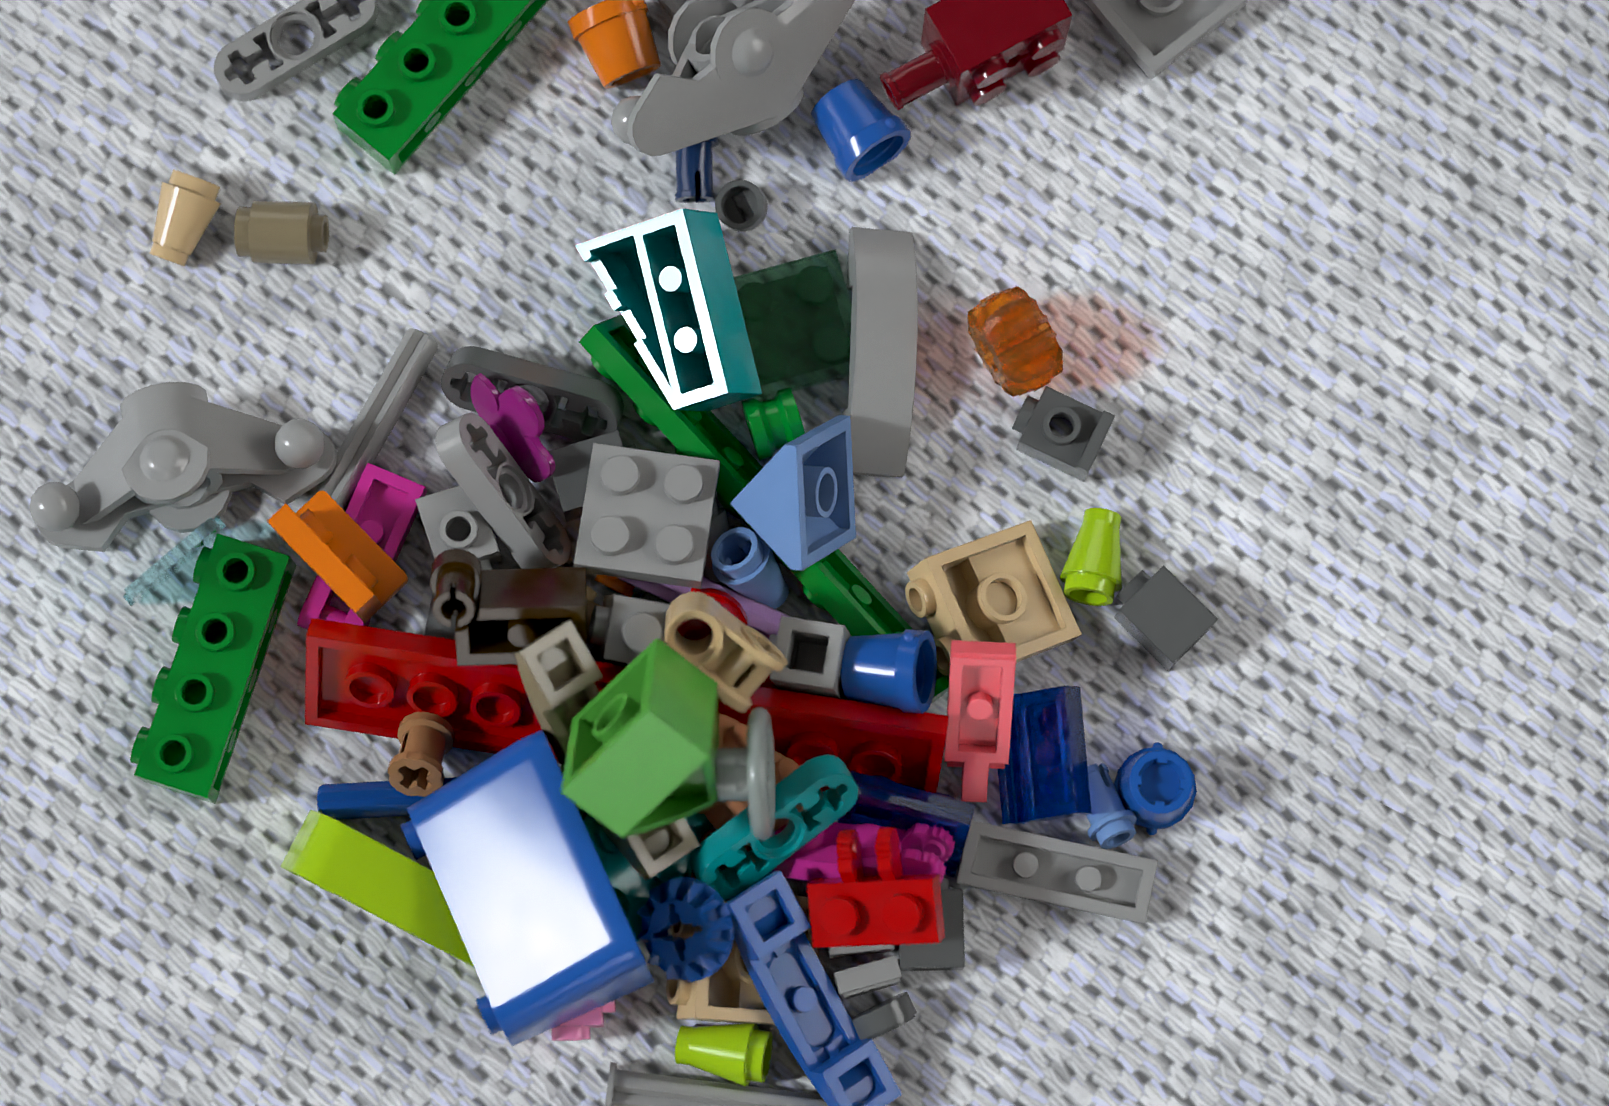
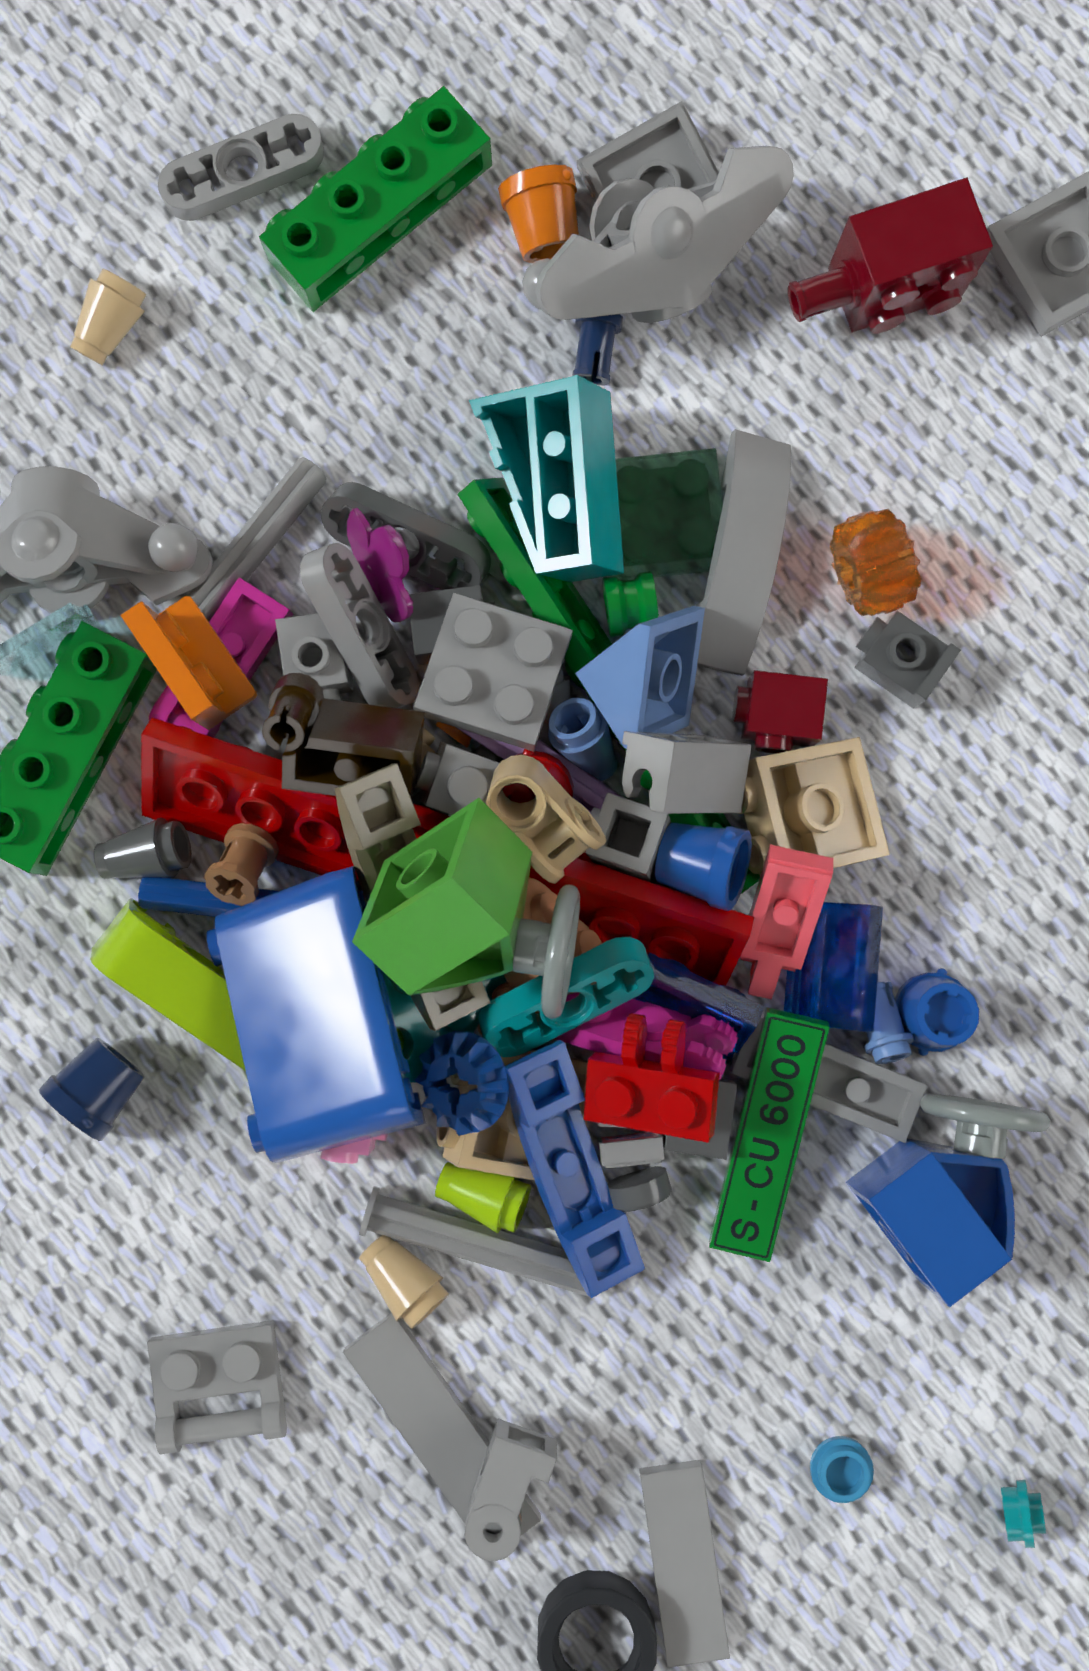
camera: 15 degrees right, 5 degrees up
(280, 232) = (195, 346): dark tan brick -> none
(306, 1008) = (93, 1088): none -> dark blue piece
(316, 760) = (145, 852): none -> dark grey cone
(731, 214) = (622, 397): dark grey hinge -> none
(858, 582) = (687, 771): none -> light grey hinge
(859, 129) = (758, 336): blue piece -> none
(945, 506) = (781, 710): none -> dark red brick
(1004, 938) = (768, 1134): none -> green tile
(1094, 562) = (913, 786): lime cone -> none
(1163, 615) = (972, 850): dark grey brick -> none
(1195, 971) = (946, 1204): none -> blue piece

